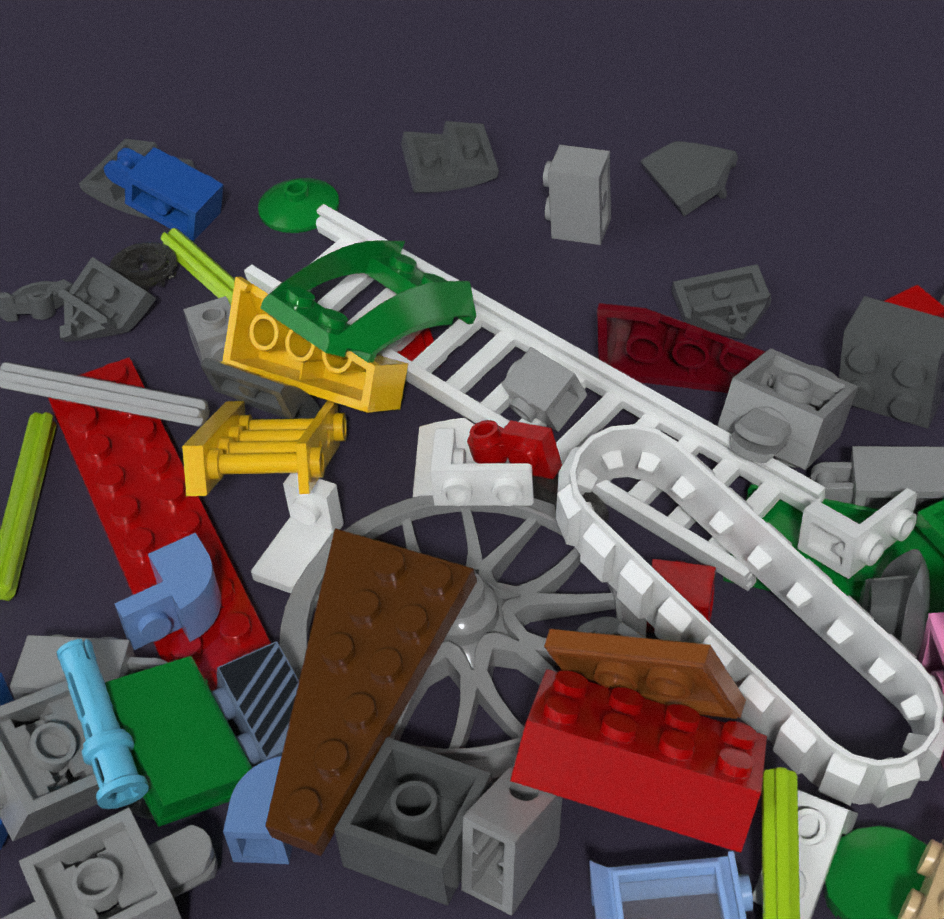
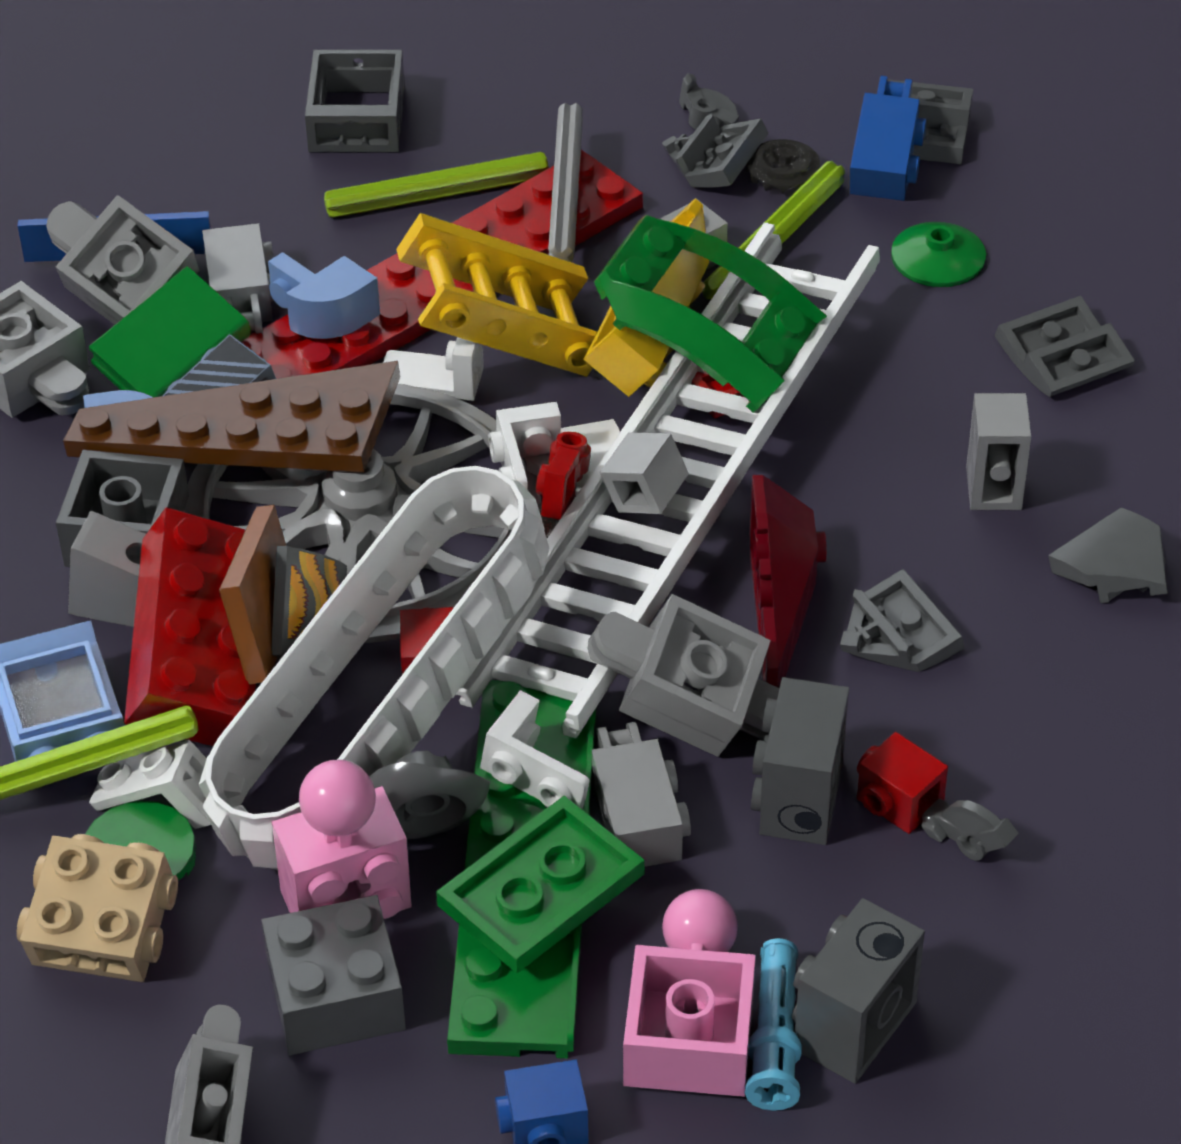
camera: 70 degrees right, 0 degrees up
(106, 745) = (127, 289): medium azure pin -> none
(259, 390) = (588, 257): dark grey slope -> none

